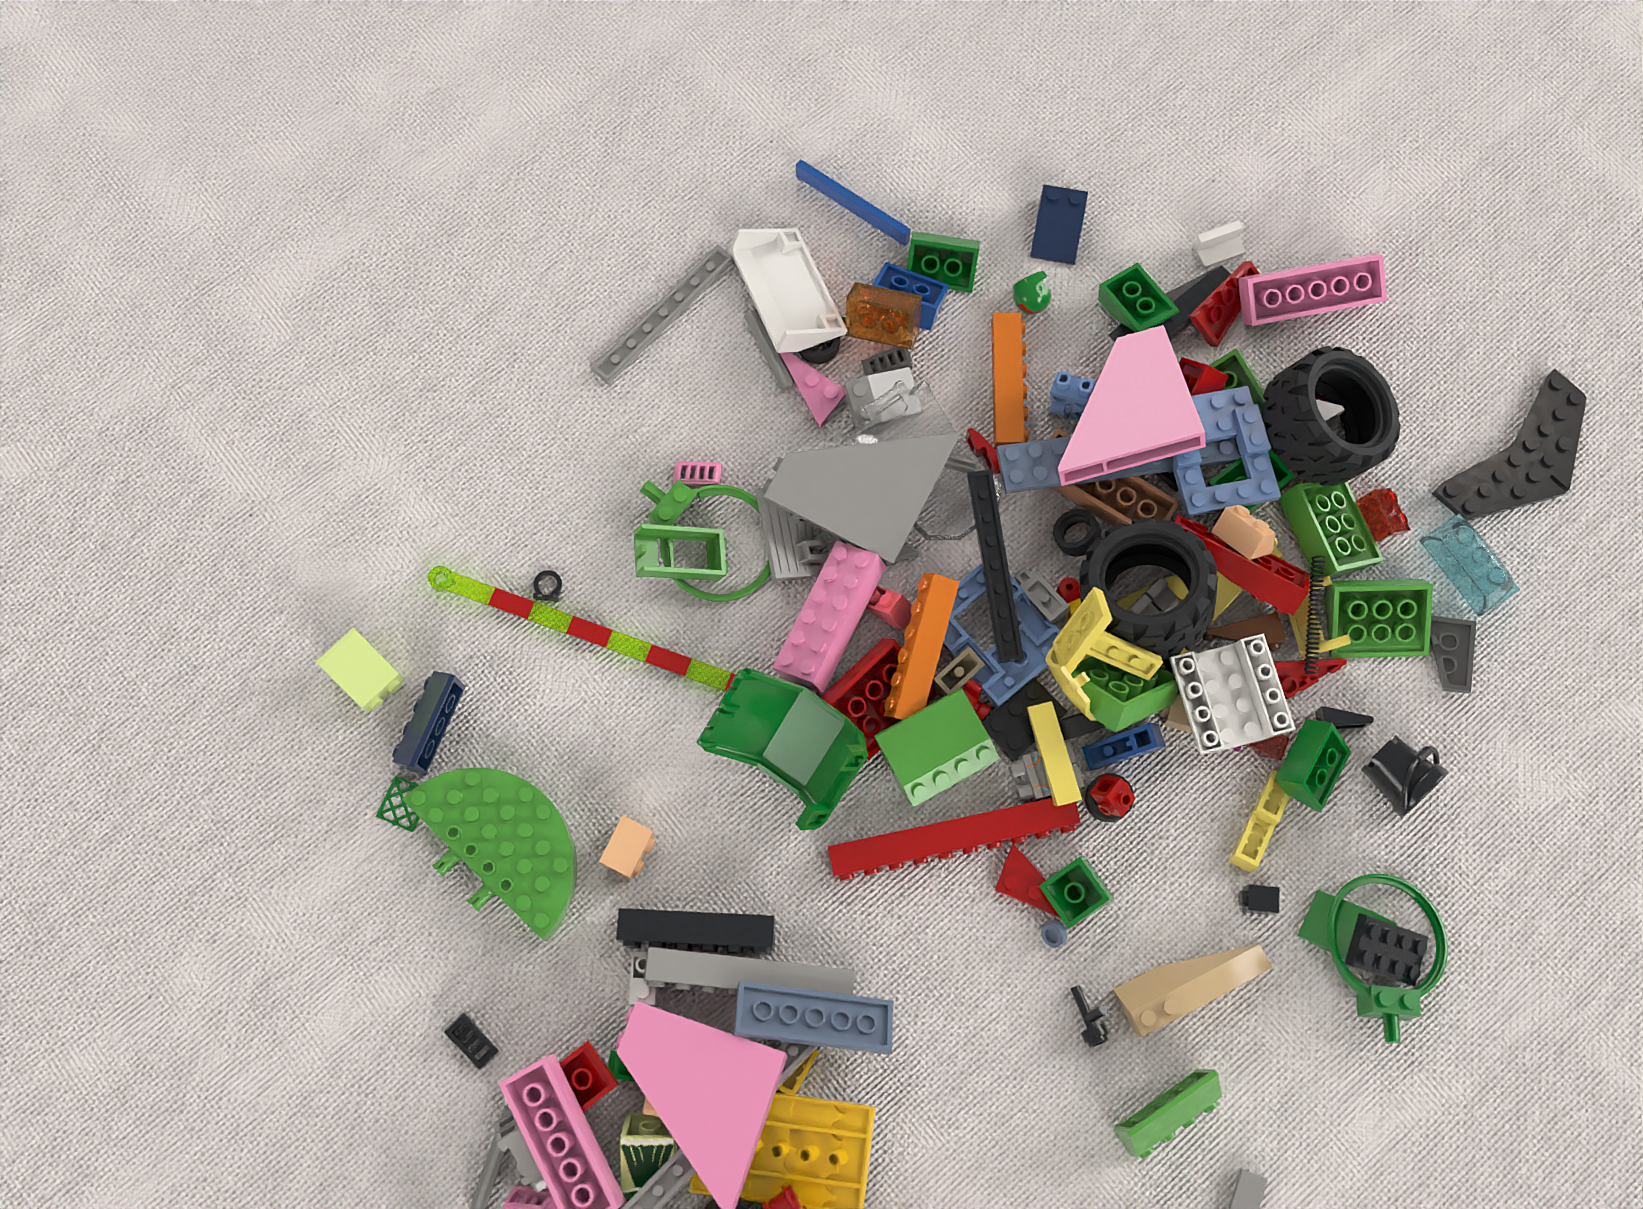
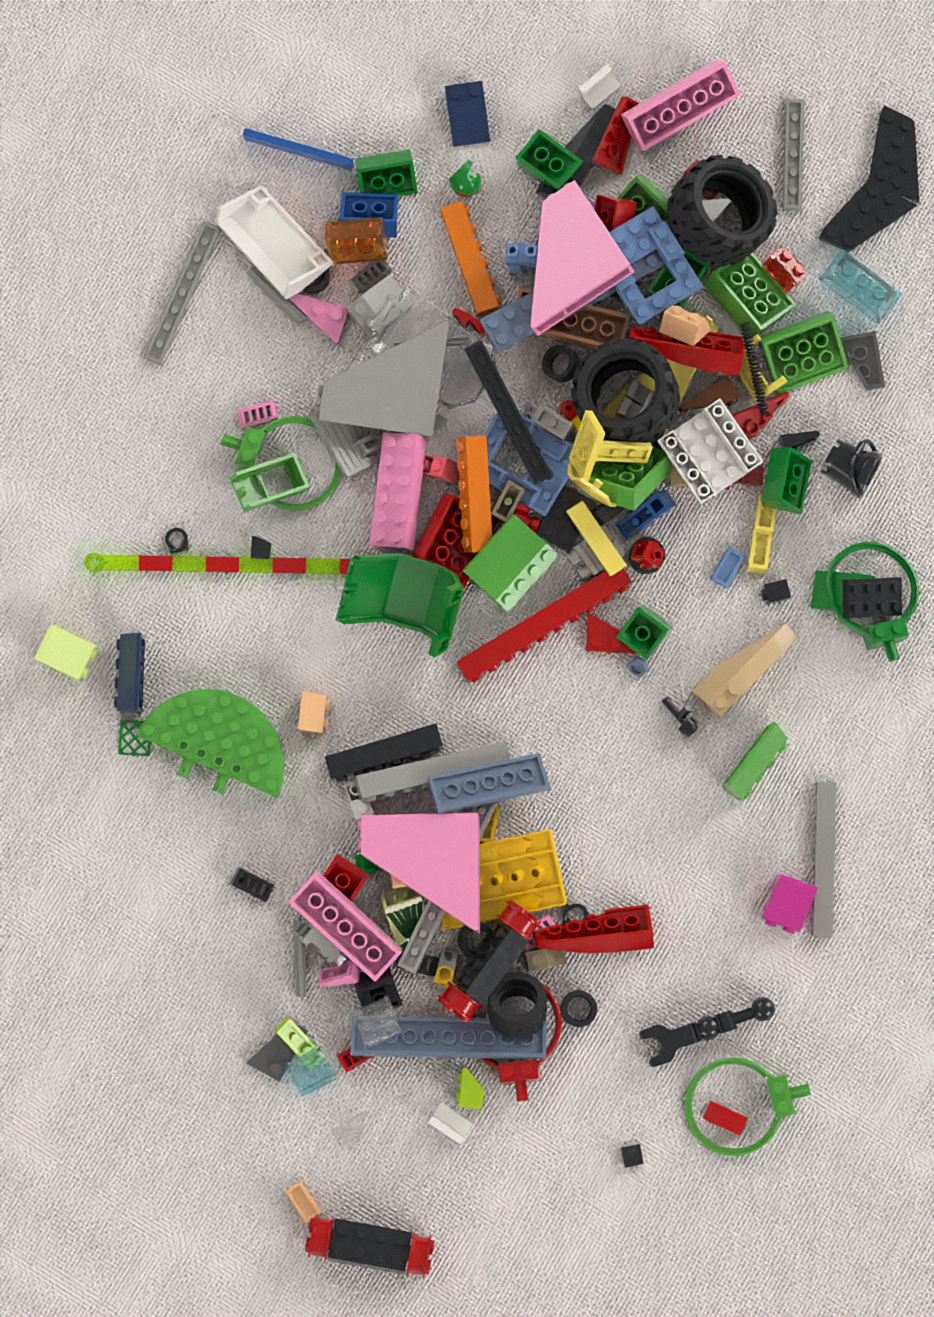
camera: 20 degrees left, 10 degrees up
(640, 628) = (260, 548): none -> black slope
(1206, 847) = (727, 567): none -> medium blue tile
(1428, 390) = (793, 155): none -> light grey tile

